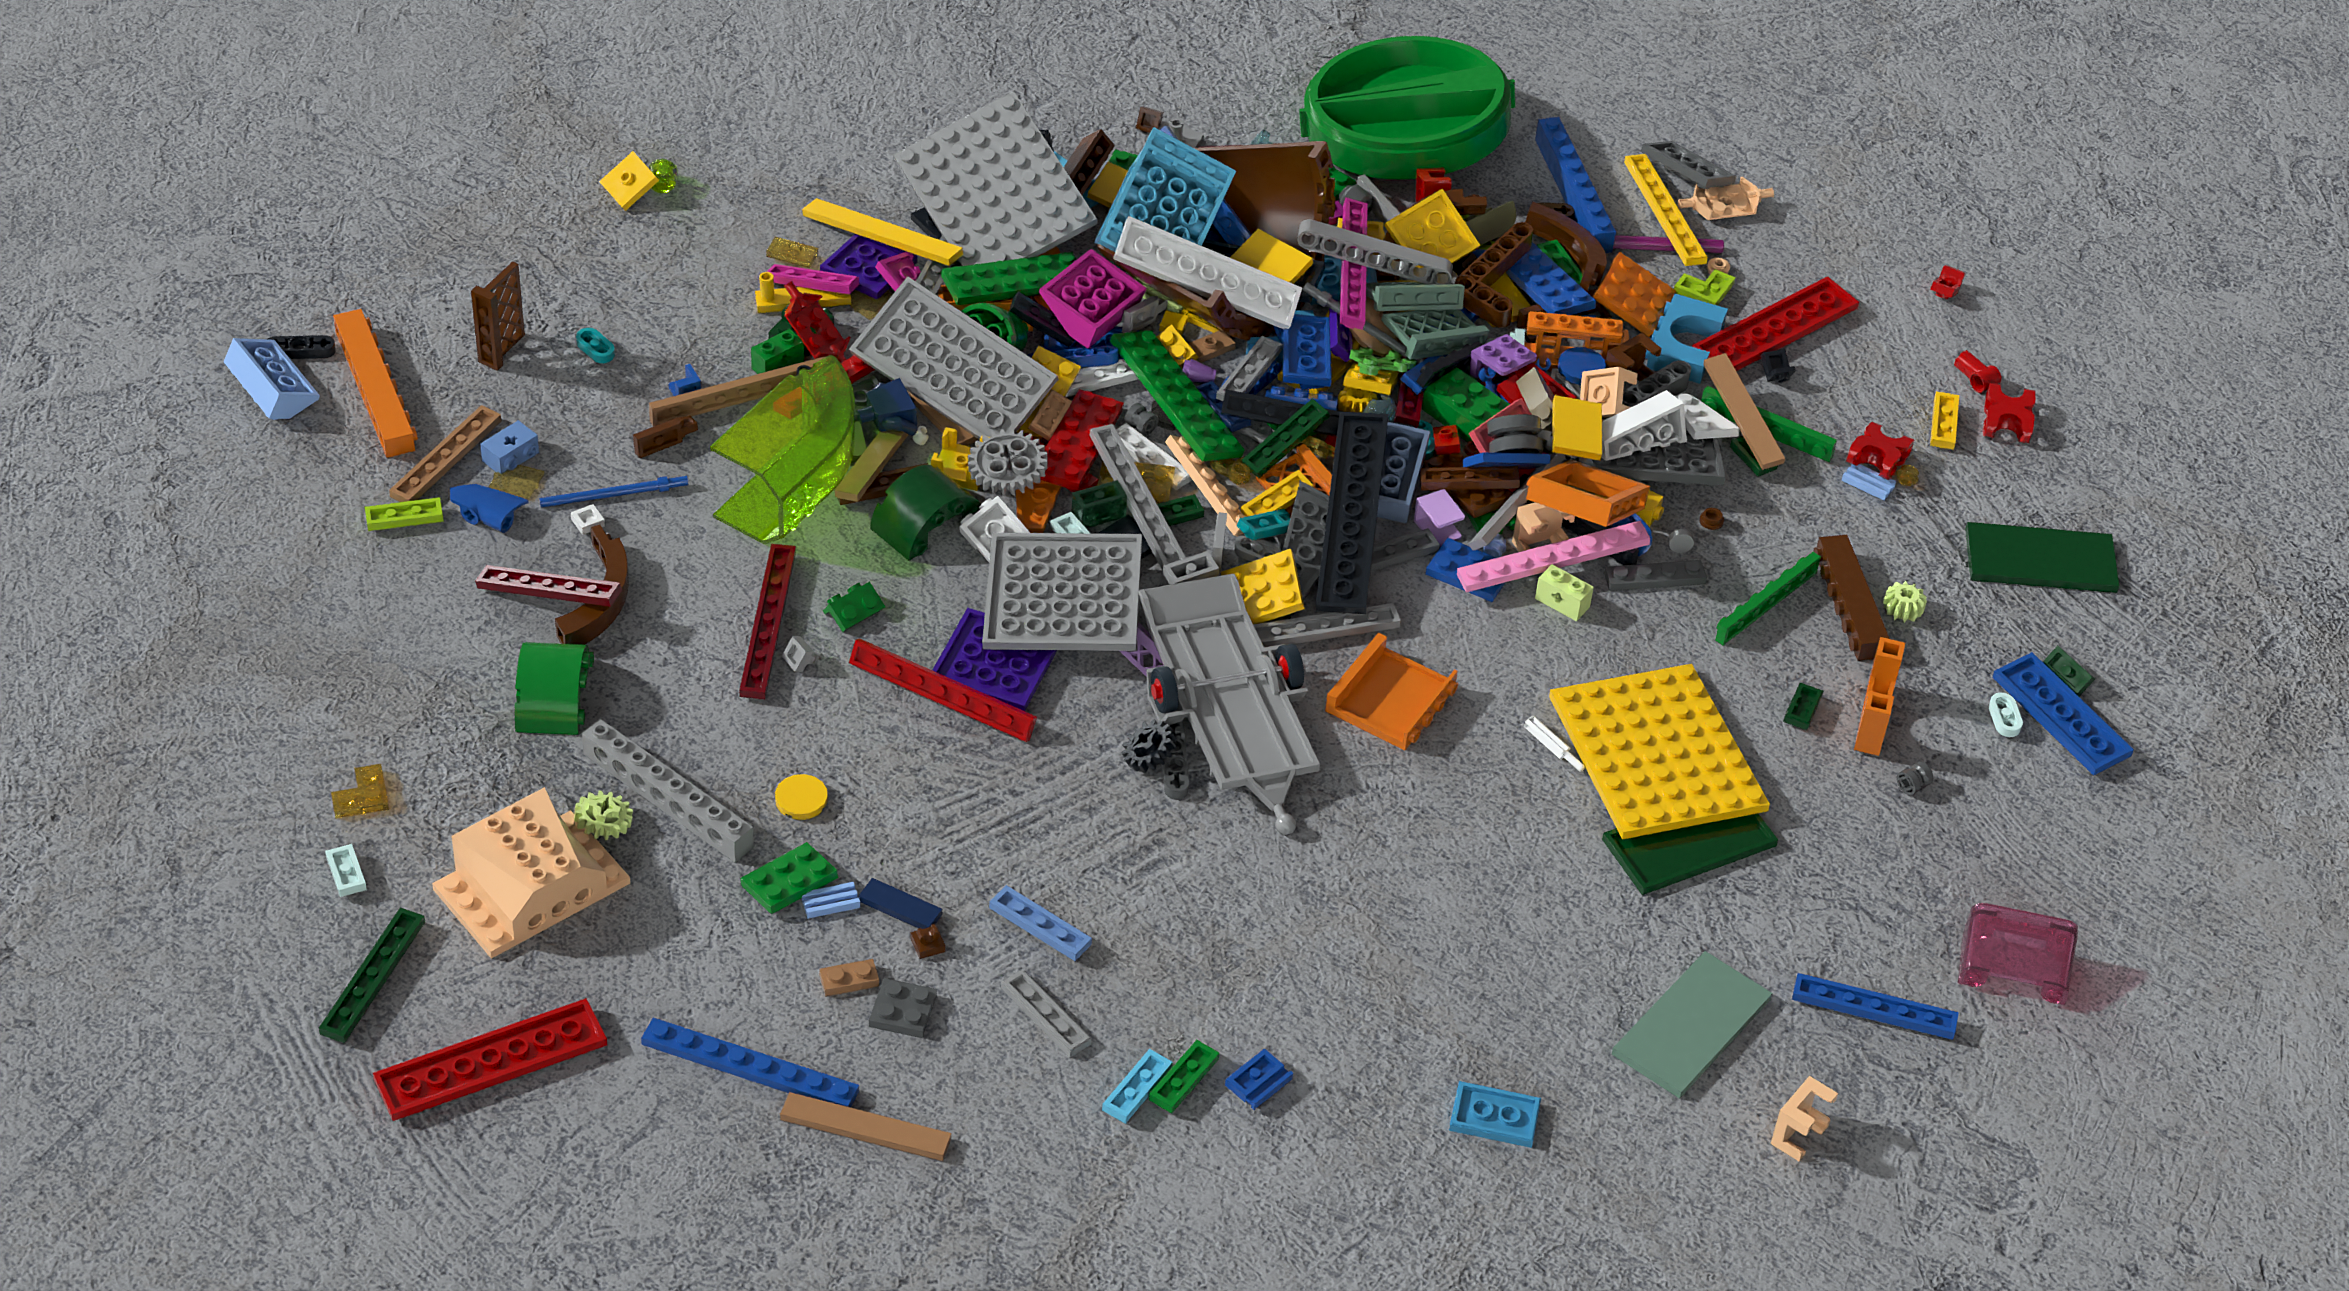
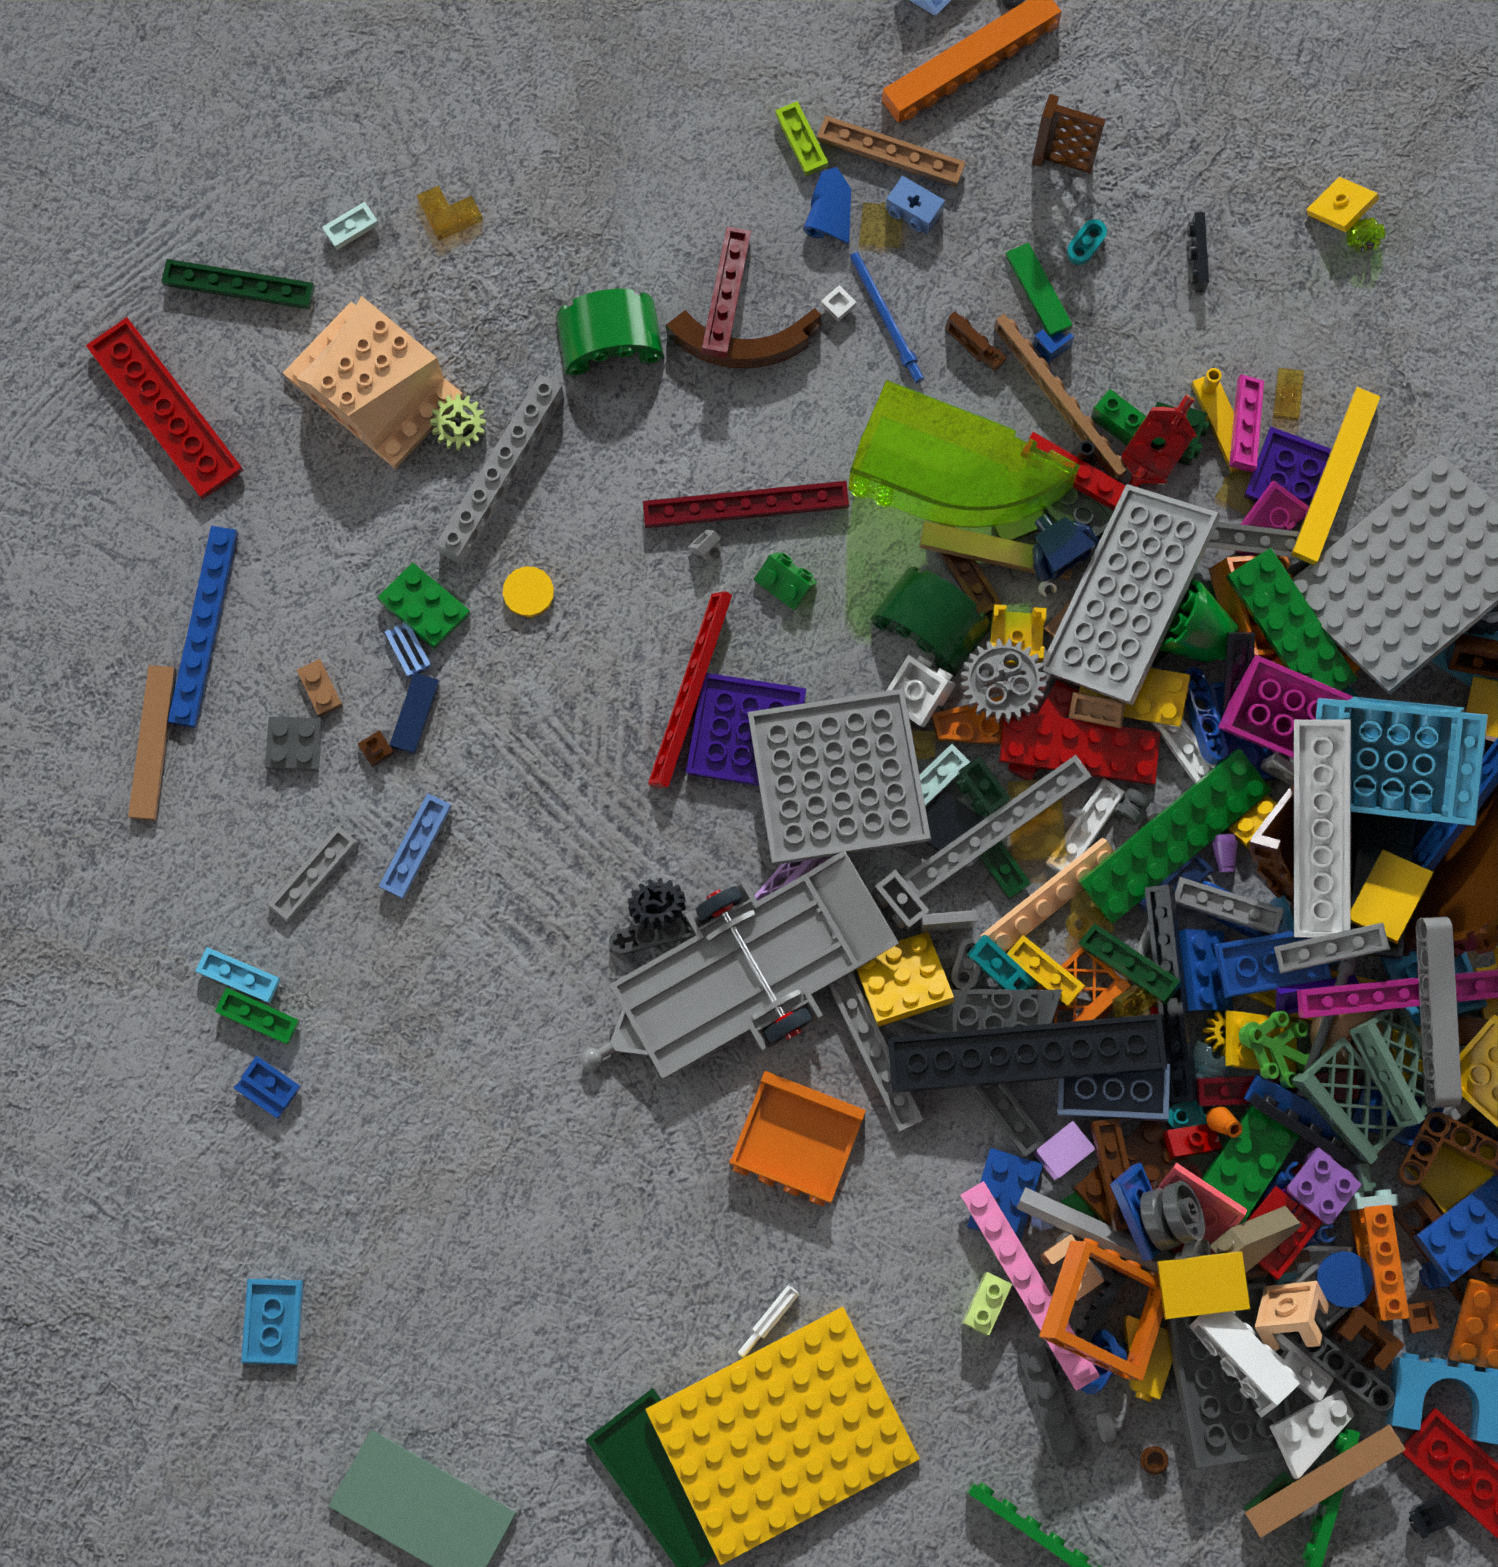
camera: 85 degrees right, 30 degrees up
(628, 385) = (1039, 290): none -> green tile
(636, 276) = (1198, 252): none -> black plate
(1307, 300) = (1332, 948): none -> light grey tile
(1436, 410) = (1222, 1121): none -> orange cone

